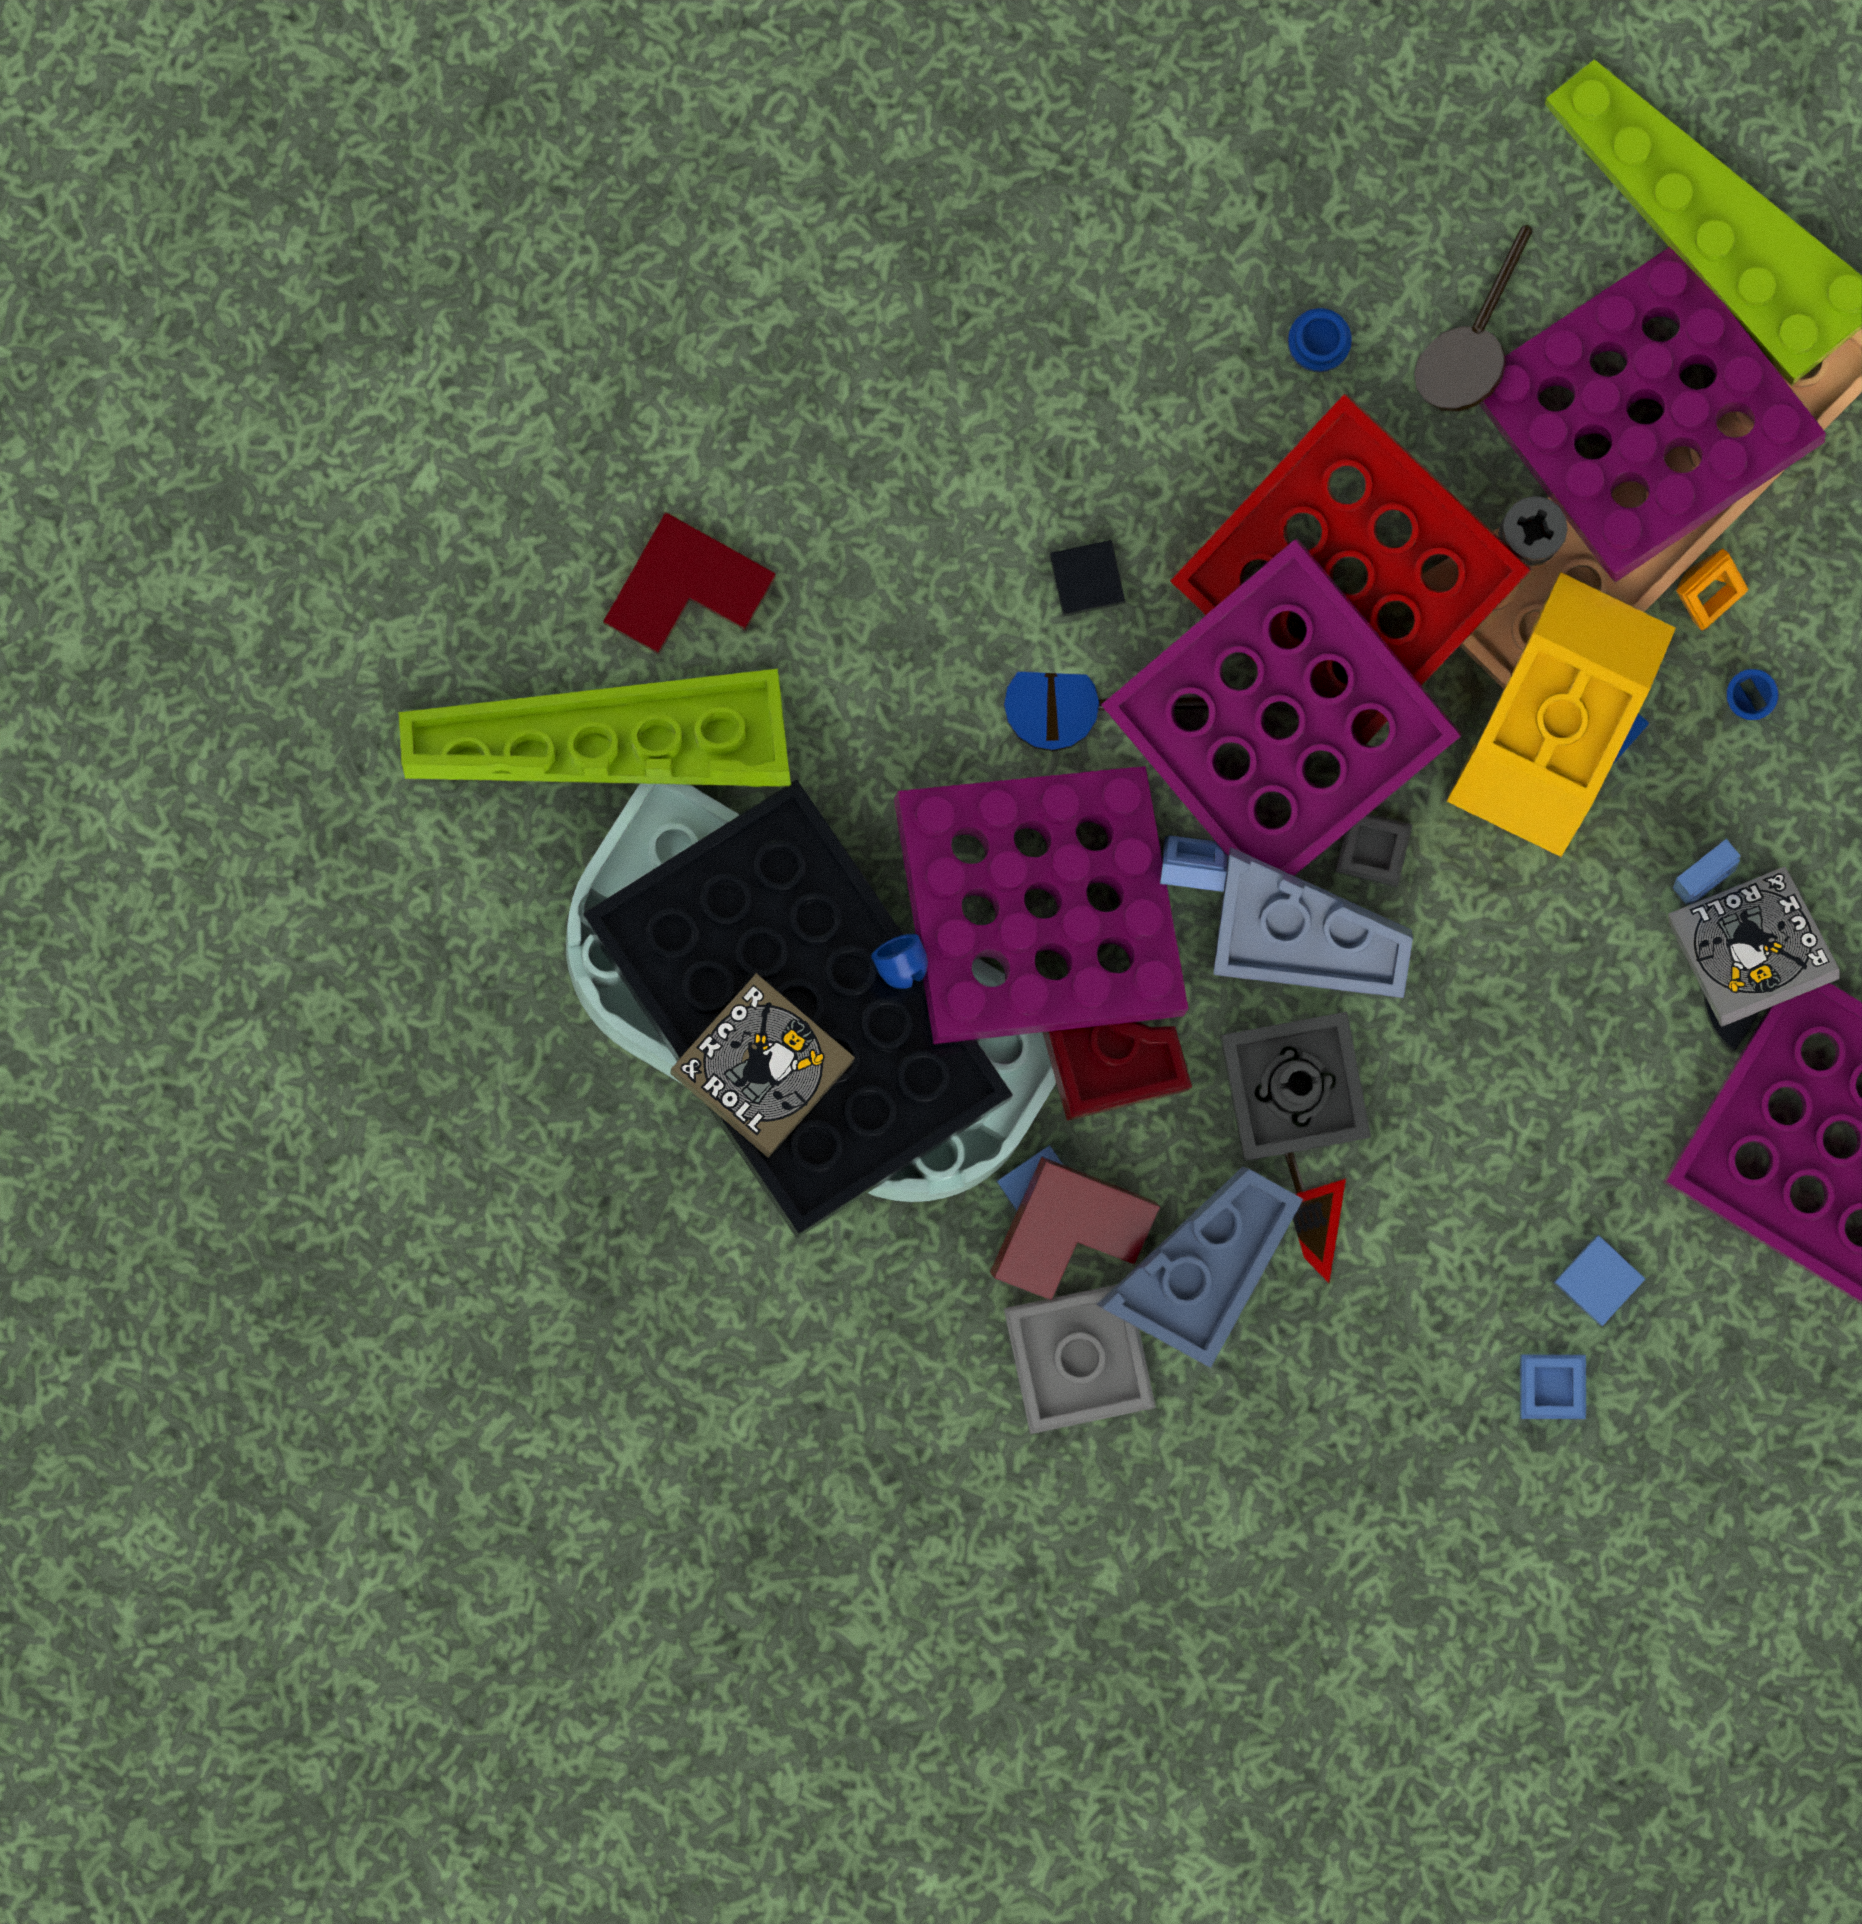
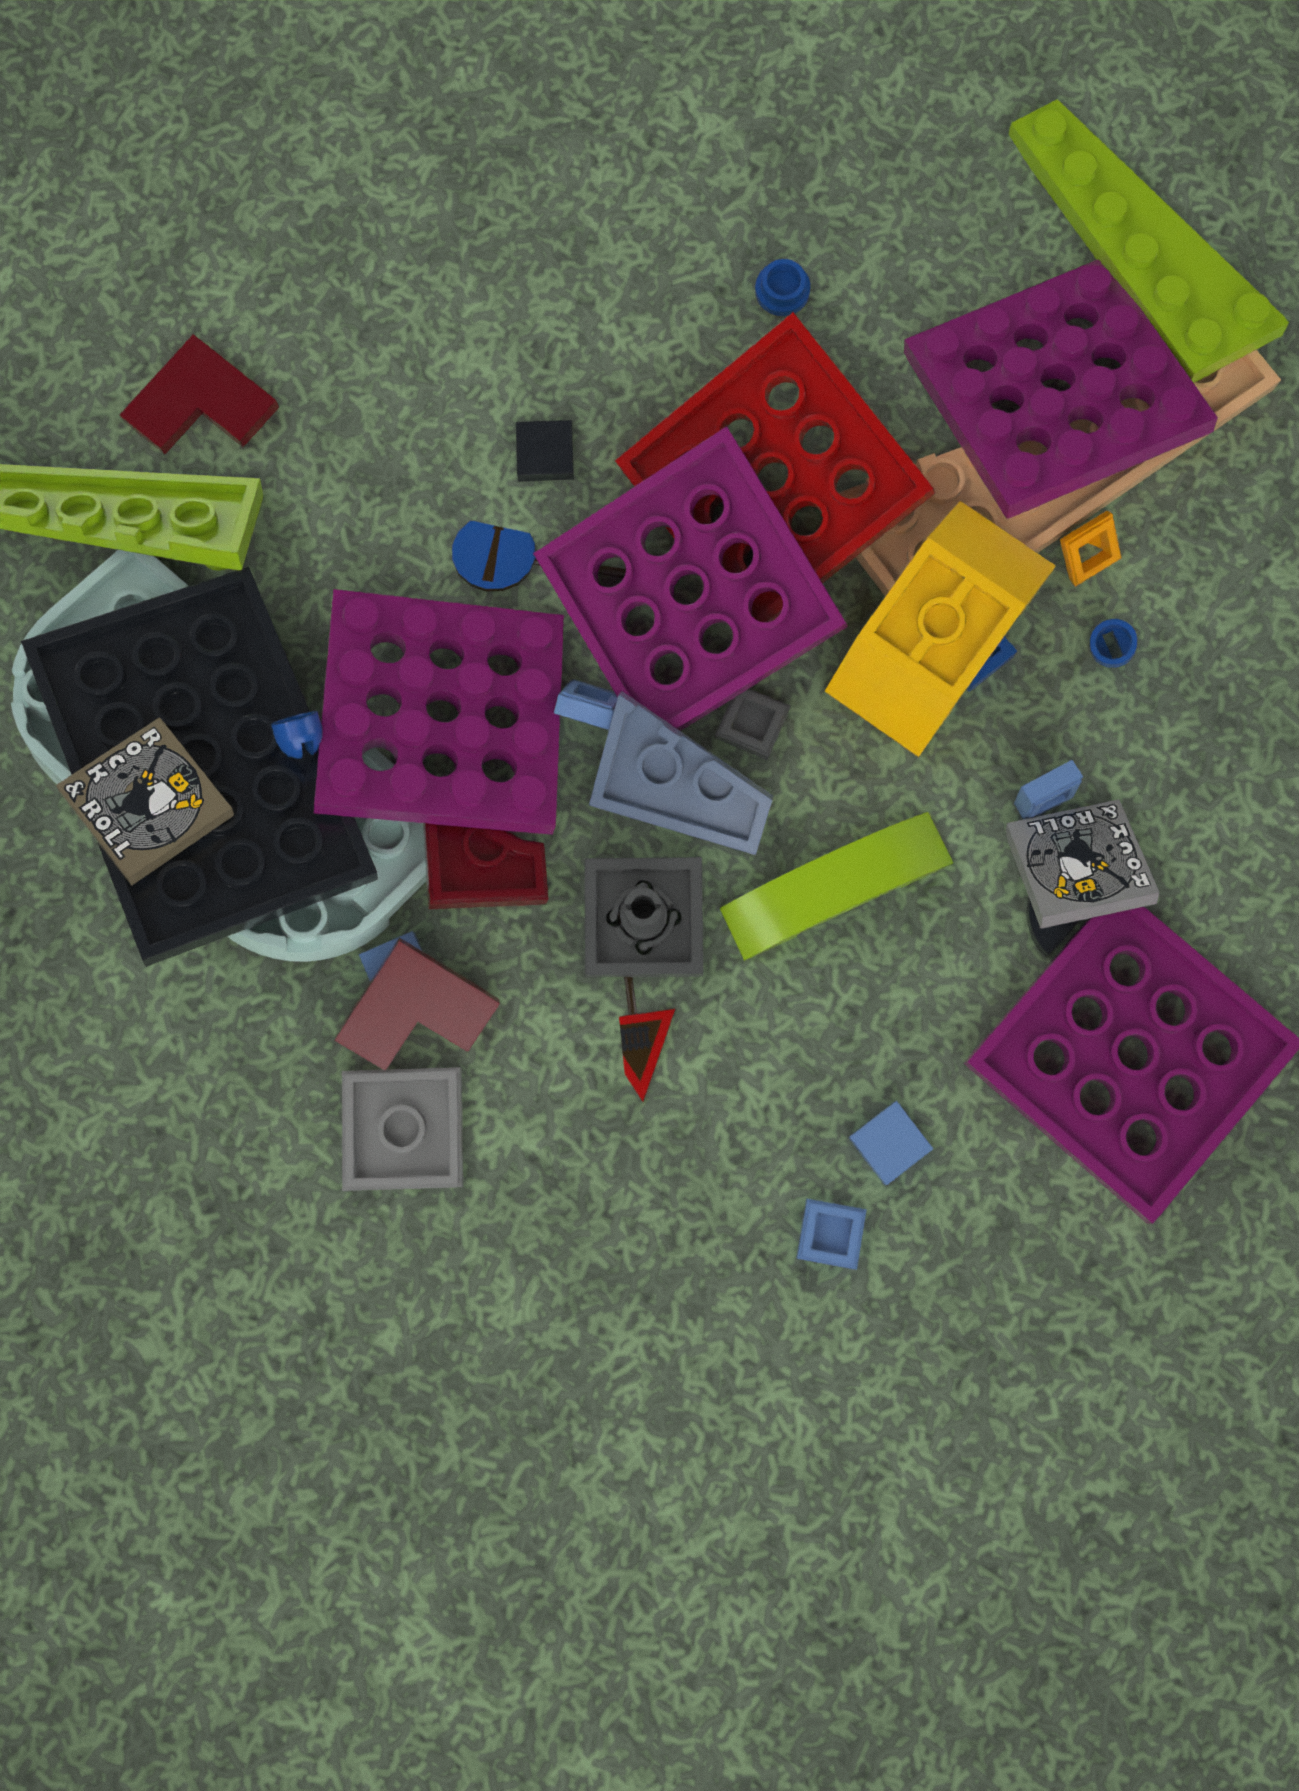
camera: 15 degrees right, 5 degrees down
(1207, 1268) = (531, 1067): sand blue wing -> none
(1468, 361) = (910, 322): dark brown piece -> none
(1495, 1014) = (835, 884): none -> lime slope
(1528, 538) = (943, 477): dark grey wheel -> none

